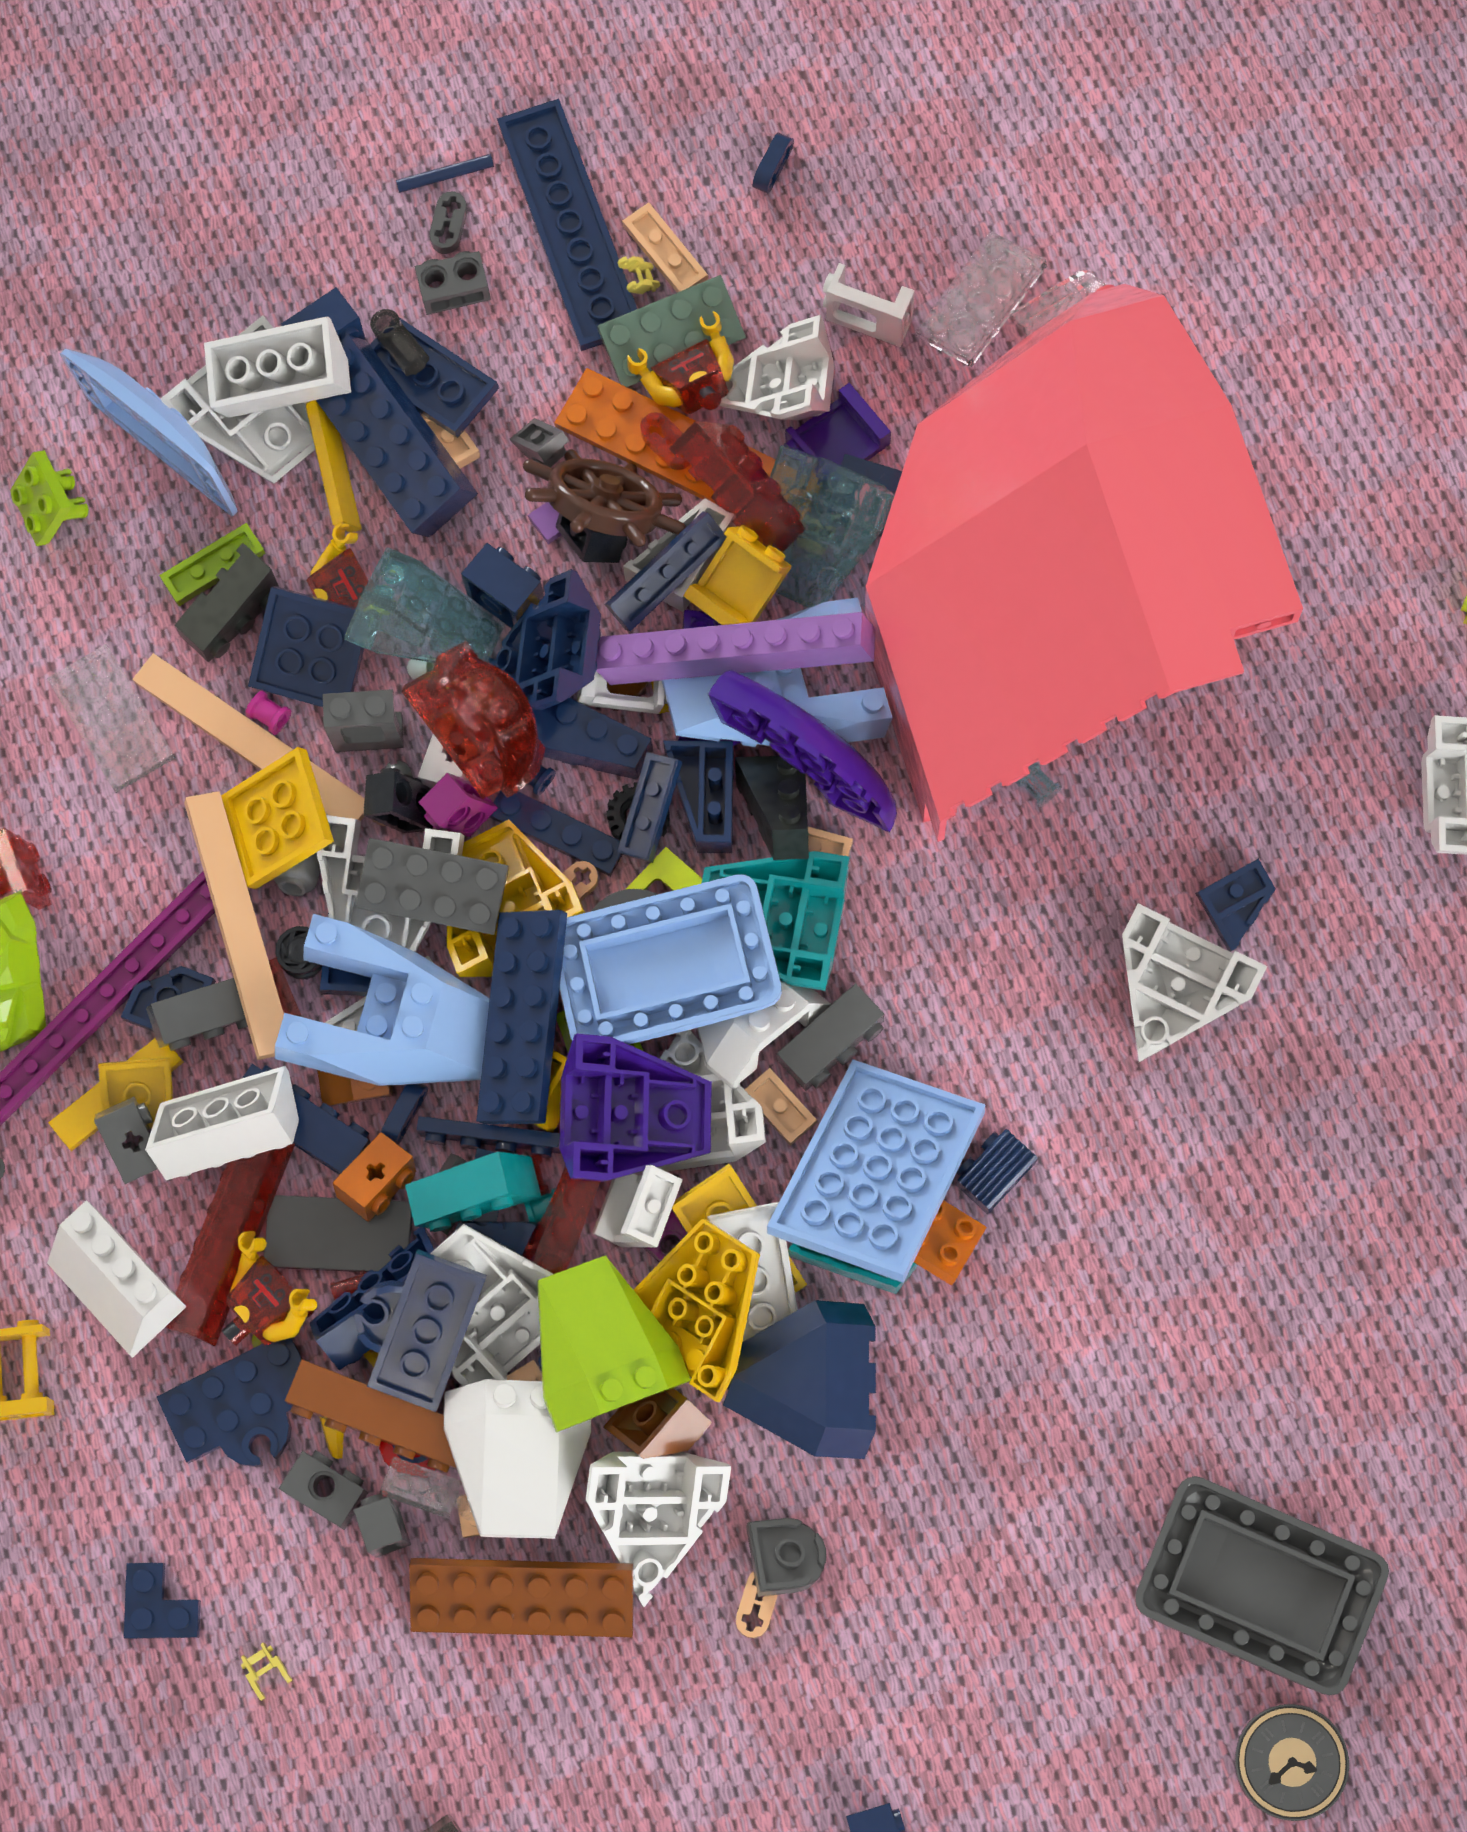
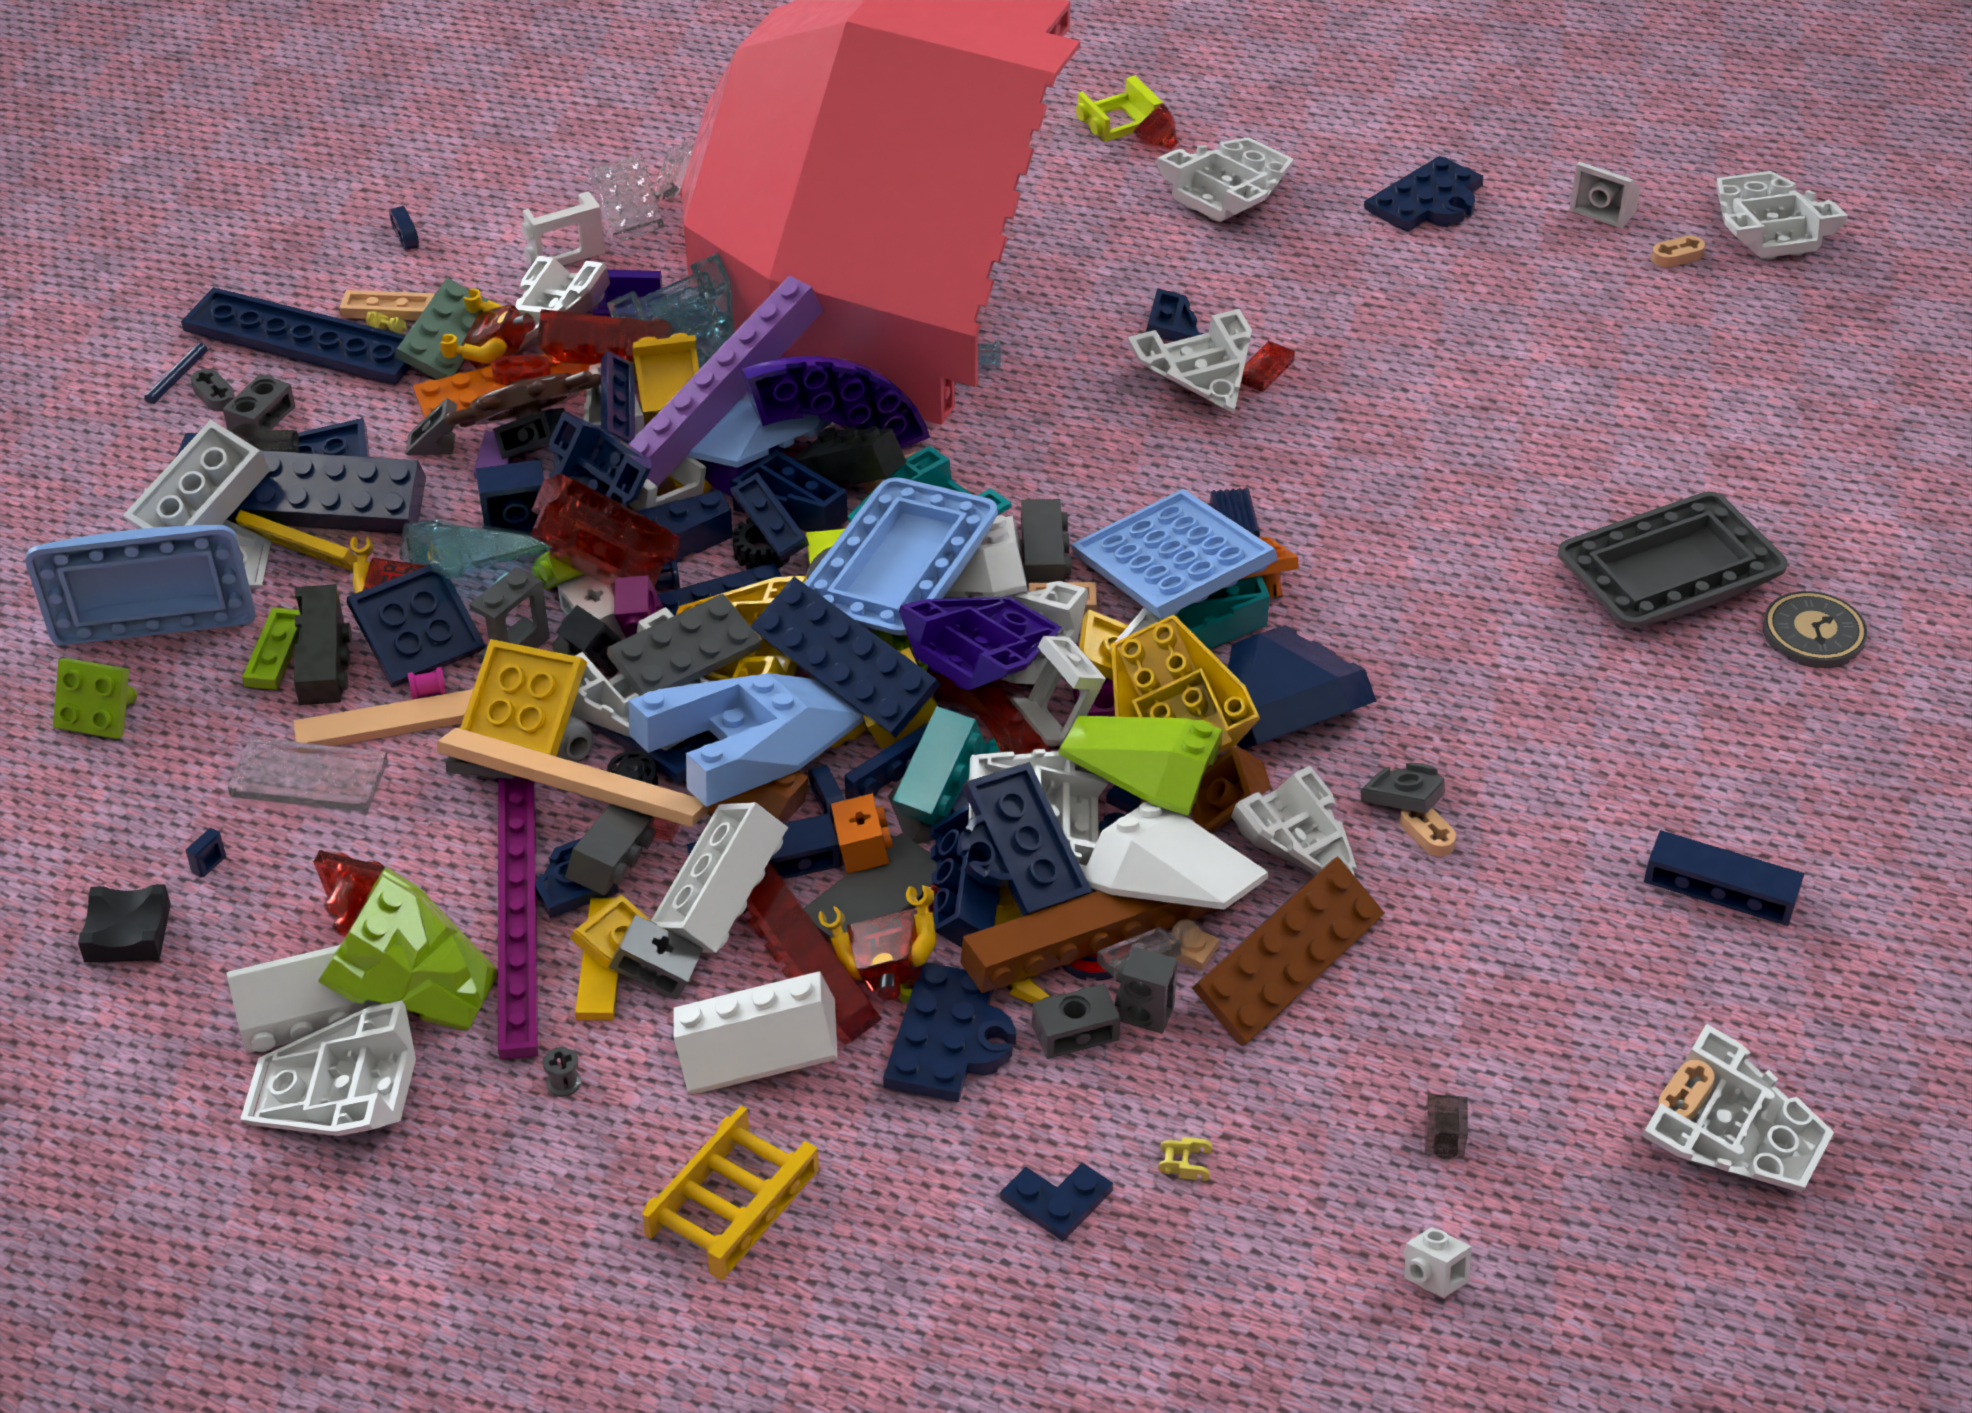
camera: 55 degrees left, 30 degrees down
(1240, 1034) = (1267, 366): none -> clear red plate

